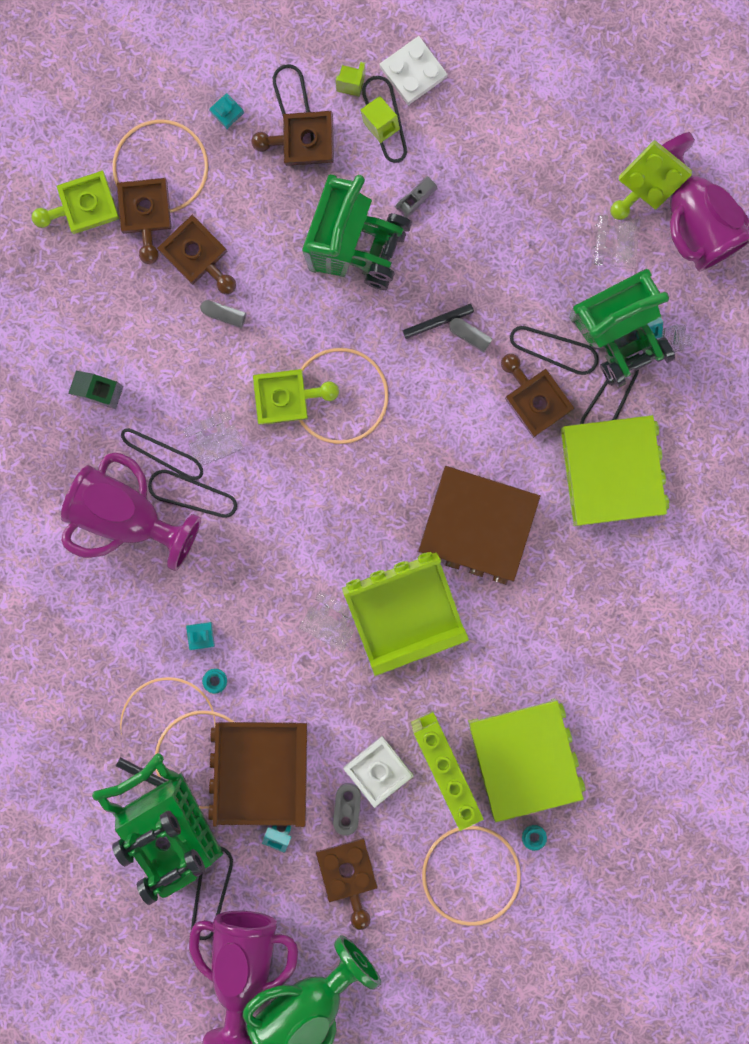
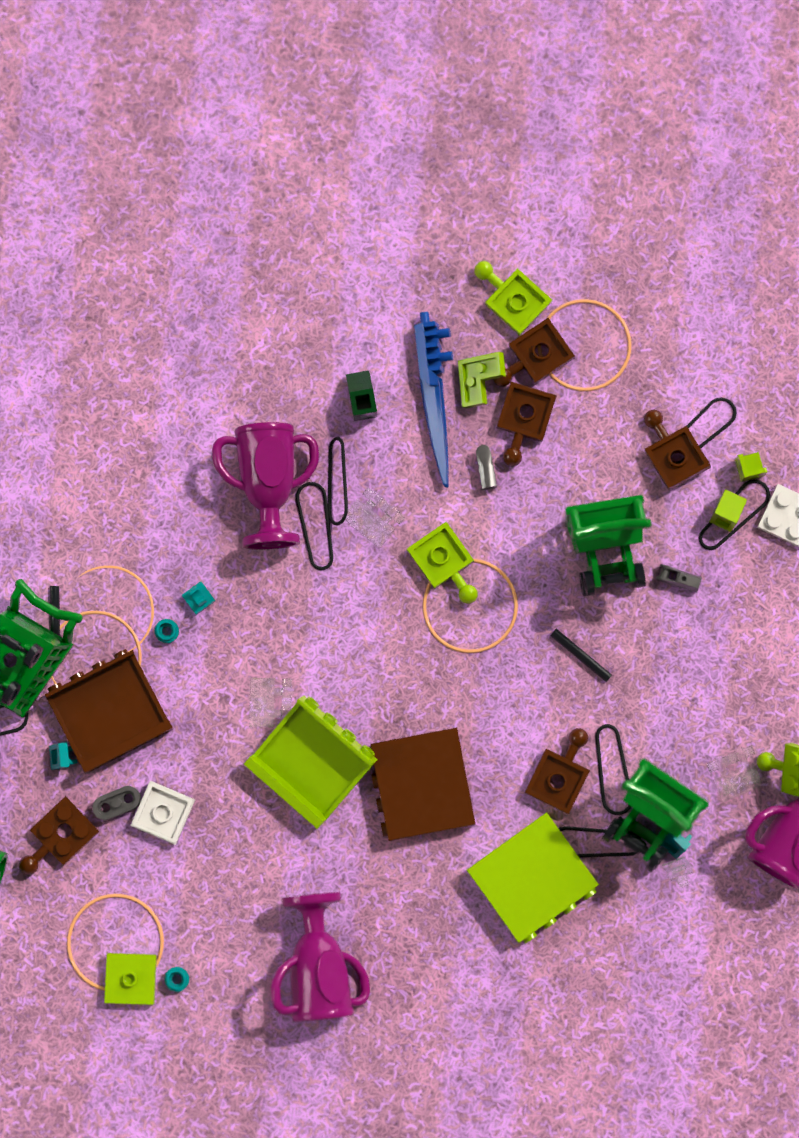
camera: 60 degrees right, 5 degrees down
(104, 314) = (430, 365): none -> blue piece
(130, 274) = (474, 373): none -> lime plate
(226, 111) = (663, 375): teal tile -> none
(446, 771) = (196, 865): lime panel -> none
(470, 334) = (584, 689): flat silver bar -> none
(512, 879) = (130, 978): none -> lime plate
(527, 760) = (240, 935): lime panel -> none
(595, 707) = (318, 967): none -> magenta piece

